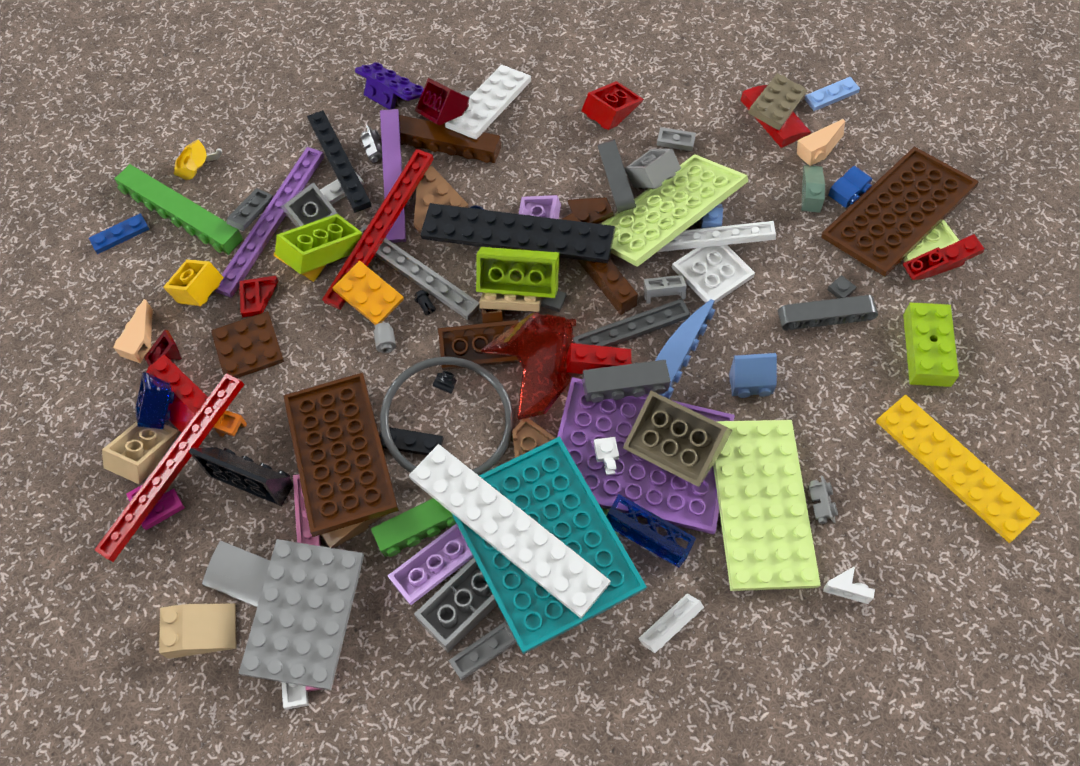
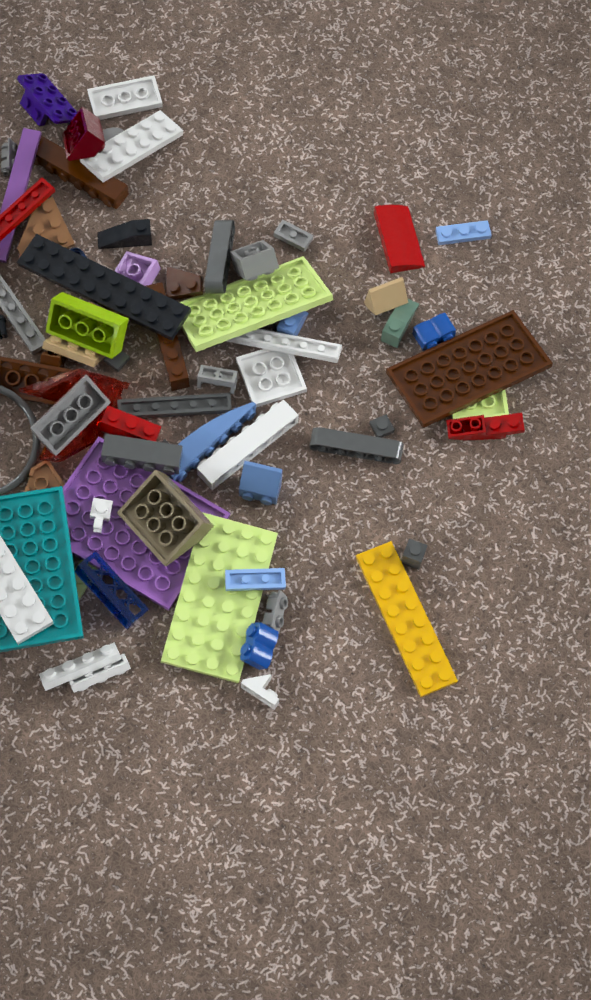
camera: 10 degrees right, 5 degrees up
(463, 62) = (125, 97): none -> white plate
(517, 181) = (129, 234): none -> black slope
(538, 364) = (70, 415): none -> light grey slope
(610, 104) = (246, 182): red slope -> none
(647, 622) = (80, 666): none -> white plate
(720, 343) = (247, 444): none -> white brick
(777, 101) = (403, 226): dark tan plate -> none
(793, 166) = (386, 296): none -> tan slope
(794, 472) = (255, 579): none -> light blue plate
(820, 143) = (426, 280): light nougat slope -> none
(826, 540) = (259, 645): none -> blue brick
(930, 344) = (433, 503): lime brick -> none
(936, 399) = (414, 554): none -> dark grey brick

